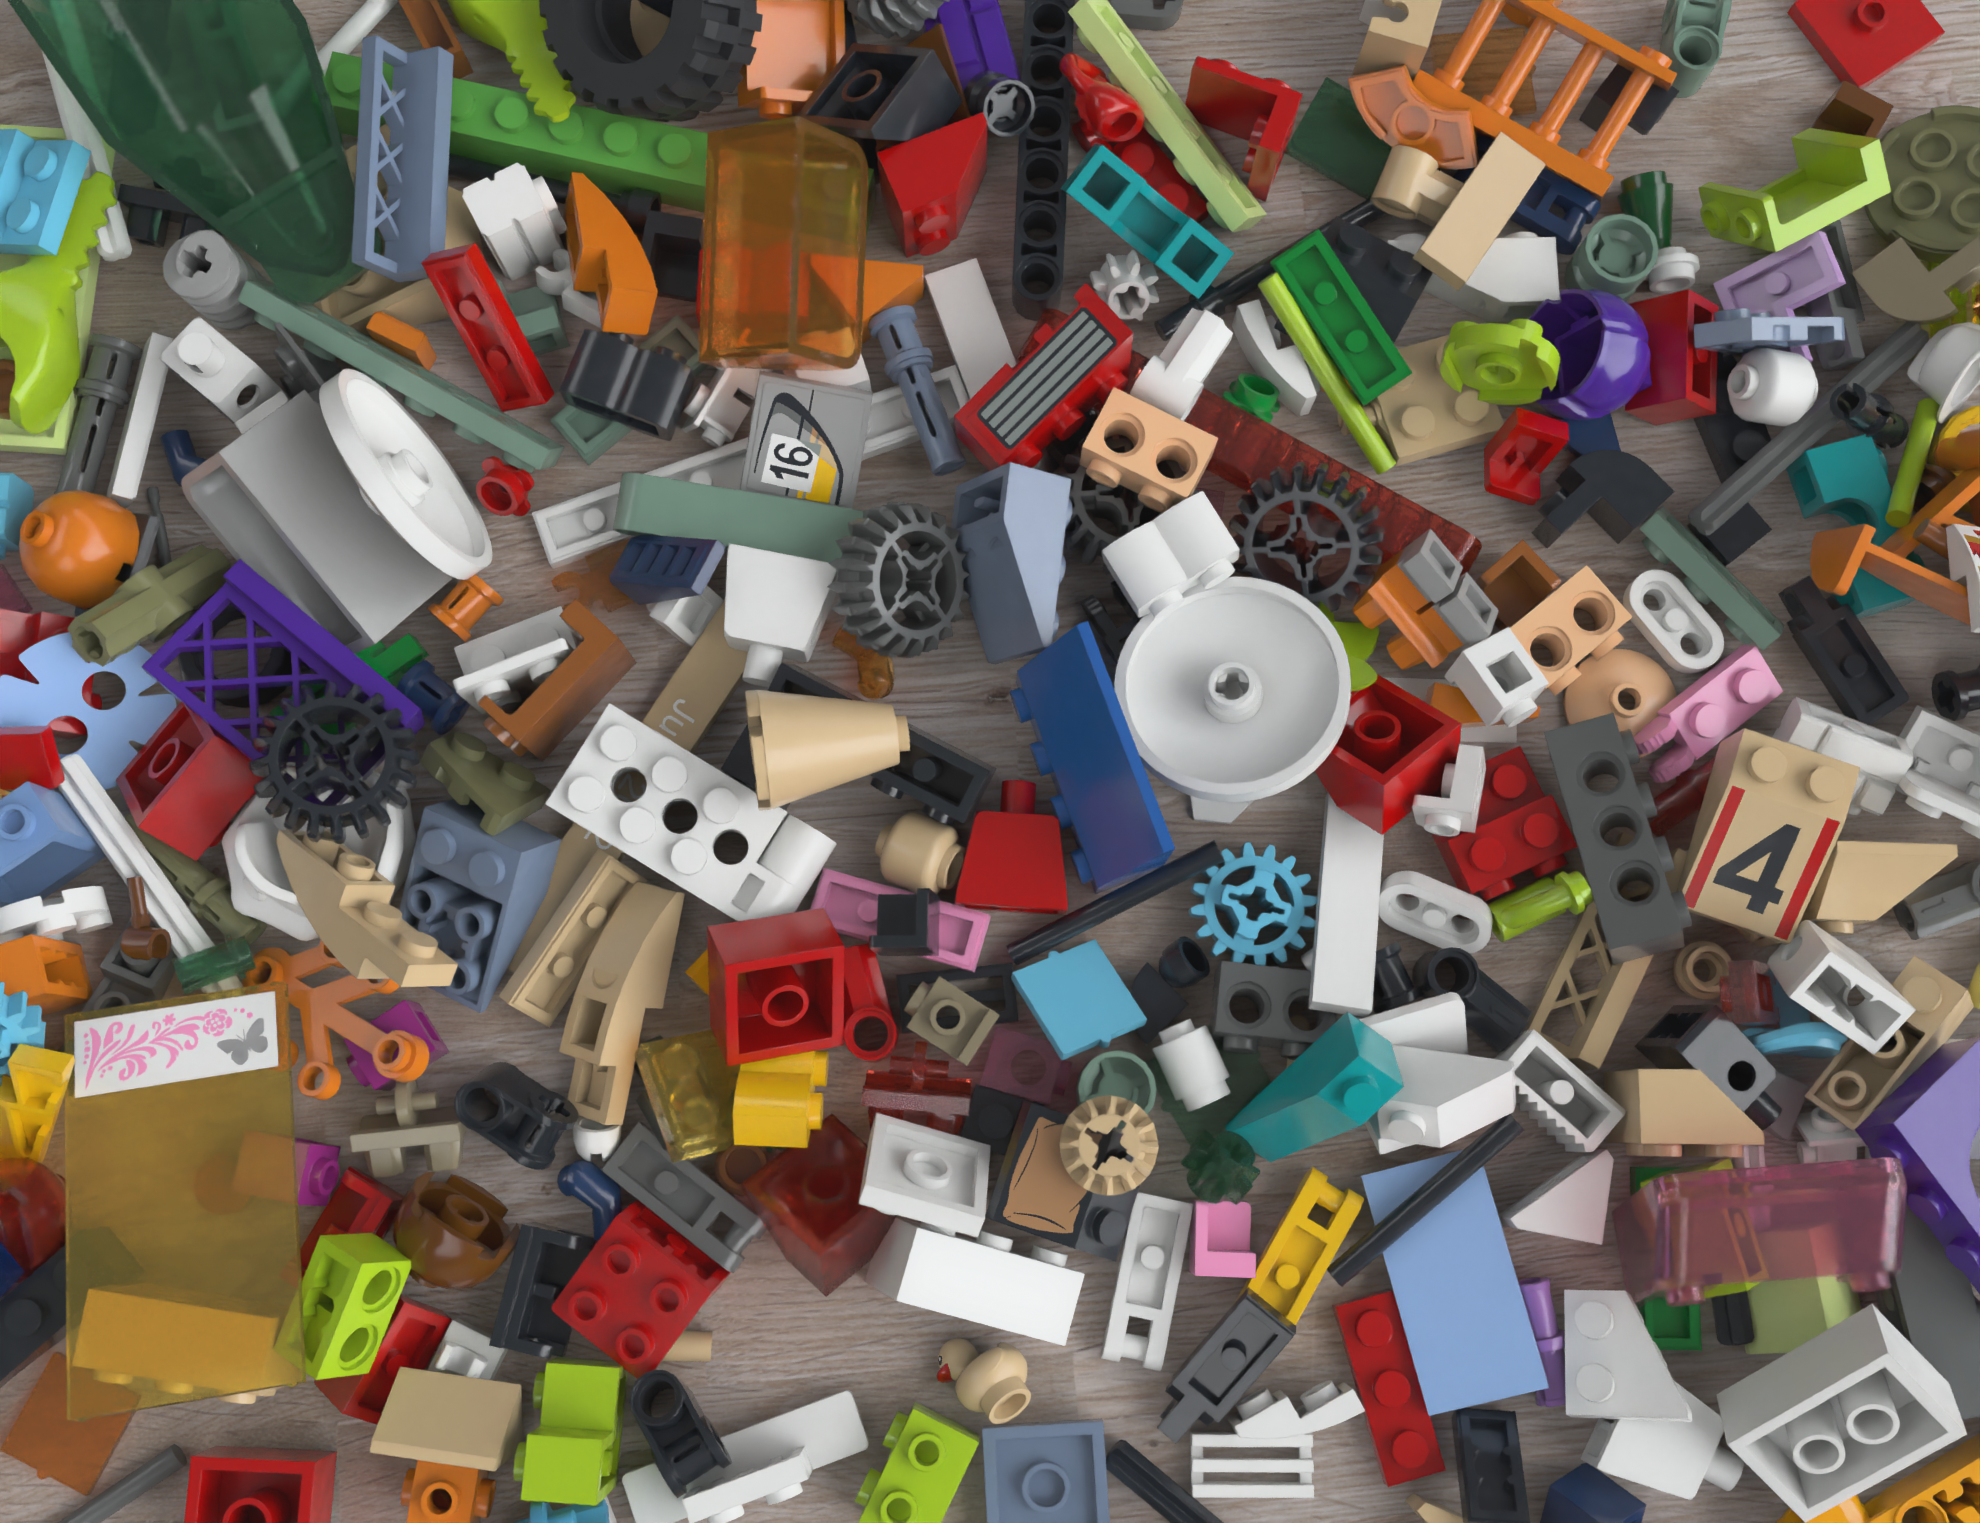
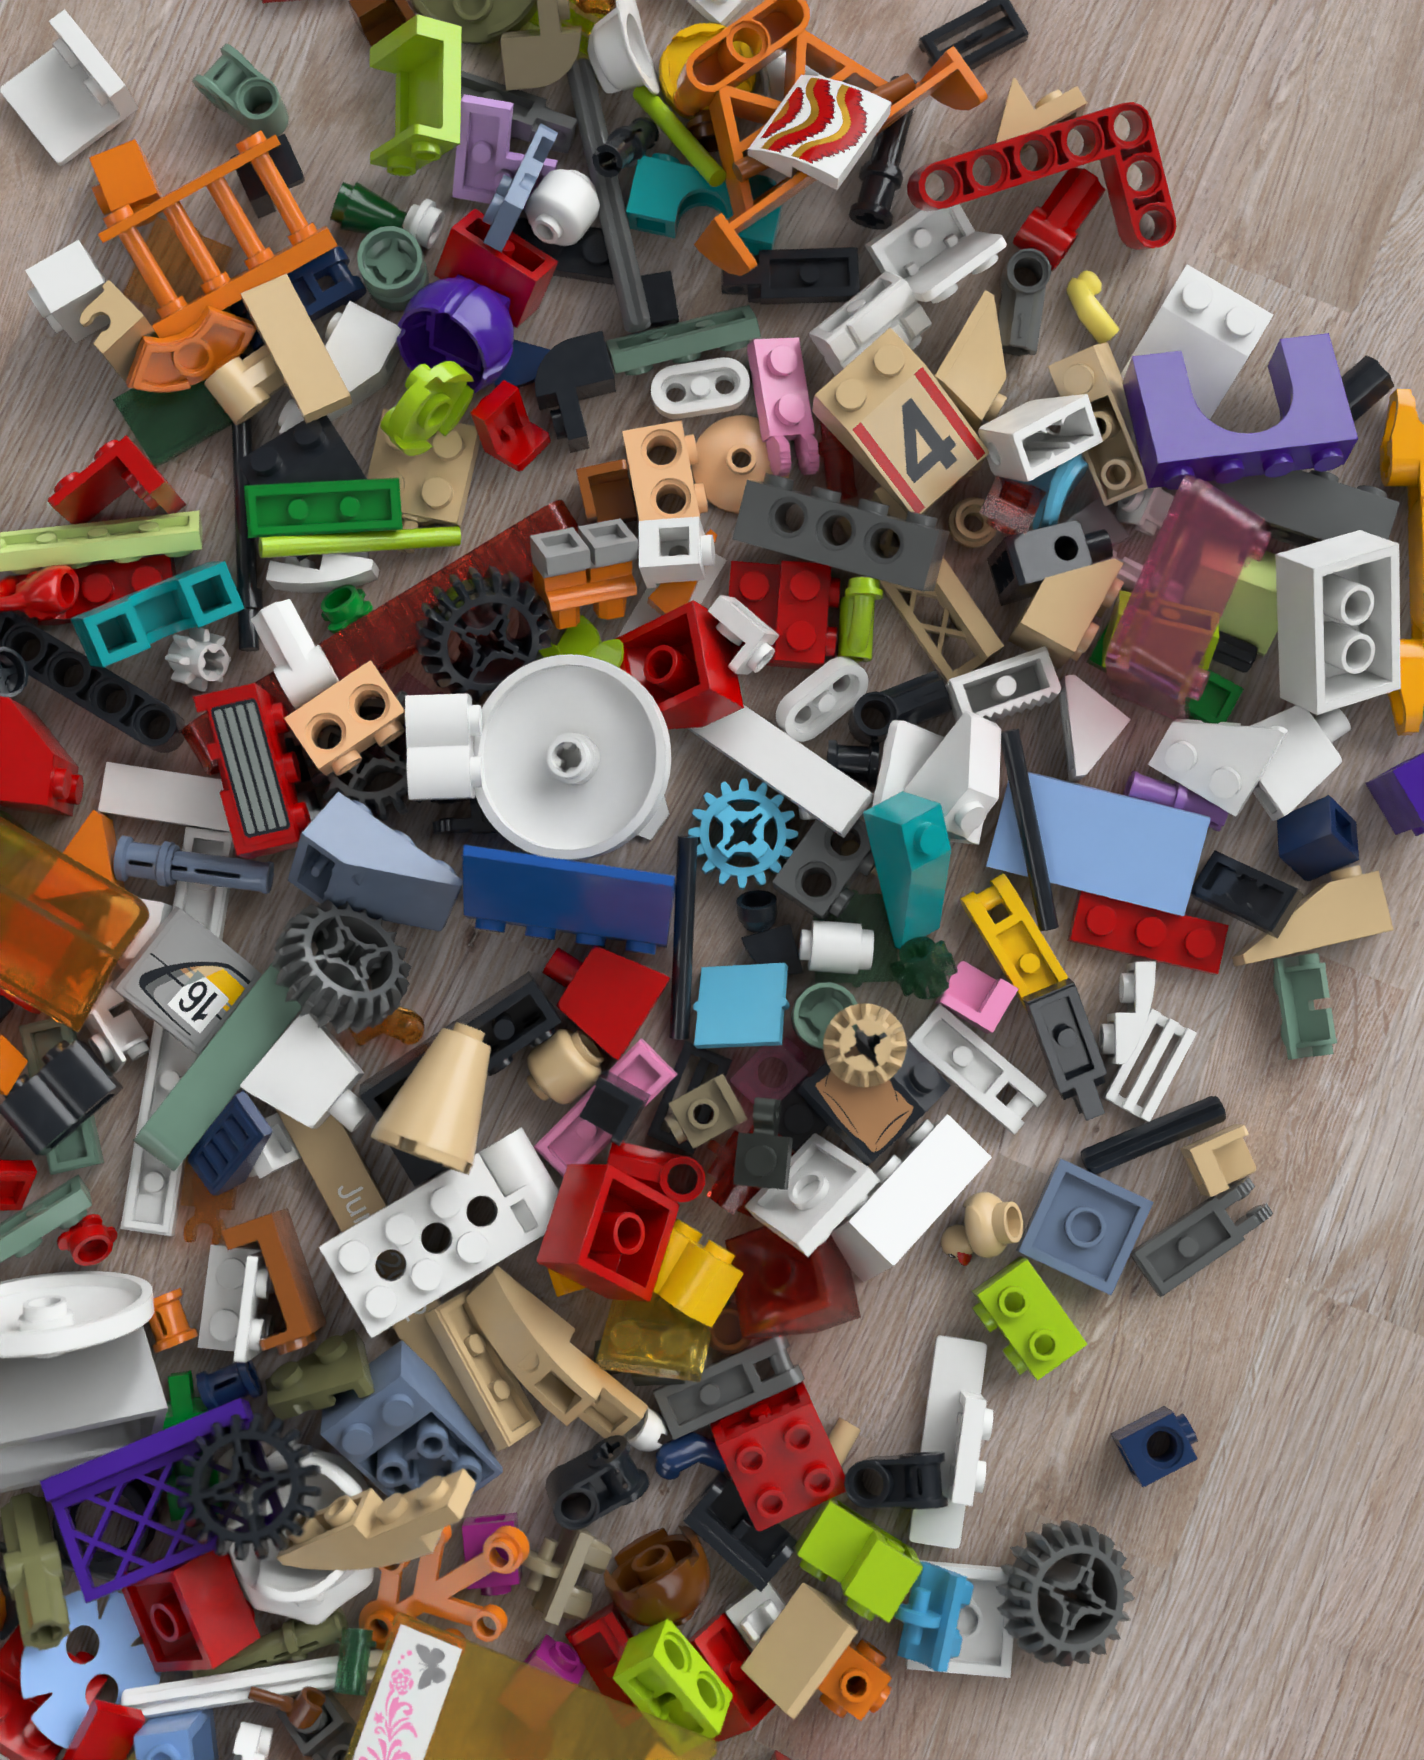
camera: 65 degrees left, 5 degrees up
(938, 1103) = (763, 1156): none -> pearl dark grey plate

